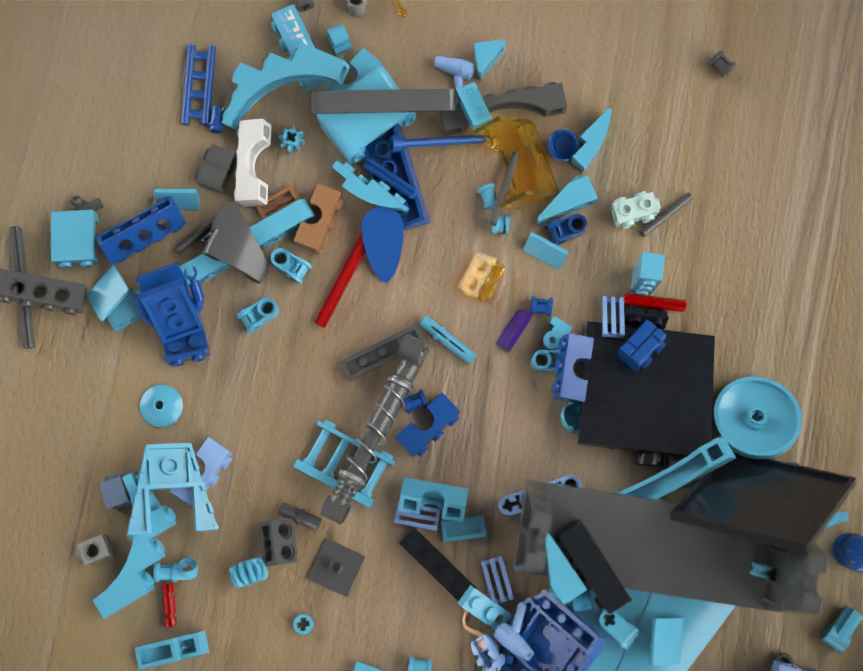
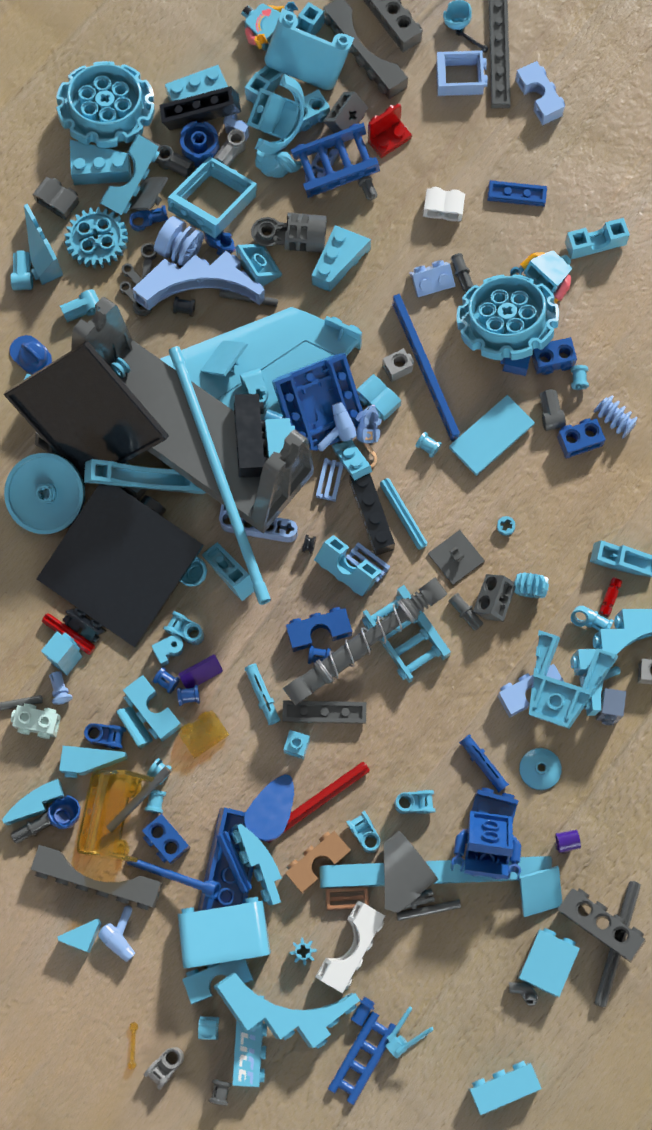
camera: 150 degrees left, 5 degrees down
(66, 119) = (504, 1087): none -> medium azure brick
(103, 346) = (567, 841): none -> dark purple piece
(145, 220) = (483, 935): blue brick -> none
(172, 106) = (399, 1045): none -> medium azure plant
(184, 198) = (436, 951): medium azure slope -> none
(216, 169) = (387, 960): dark grey brick -> none
(224, 386) = (483, 763): none -> blue pin
(383, 101) = (202, 929): dark grey beam -> none
(391, 309) = (296, 744): none -> medium azure brick
(408, 583) = (403, 514): none -> medium azure axle
(459, 175) = (169, 836): none -> blue brick
(470, 528) = (327, 528): medium azure tile -> none
(473, 106) = (123, 885): medium azure hinge -> none
(481, 503) = (309, 544): none -> black bush
(513, 303) = (188, 695): none -> blue bush
(523, 264) = (140, 694): none -> medium azure arch
(541, 437) = (229, 571): none -> medium azure slope
(567, 385) = (164, 623): arch -> none
(583, 119) = (31, 828): none -> dark grey axle
(600, 510) = (258, 584): none -> medium azure piece
(620, 302) = (112, 620): light blue tile -> none
(630, 246) = (59, 691): none -> light blue pin
(641, 346) = (103, 597): blue brick -> none

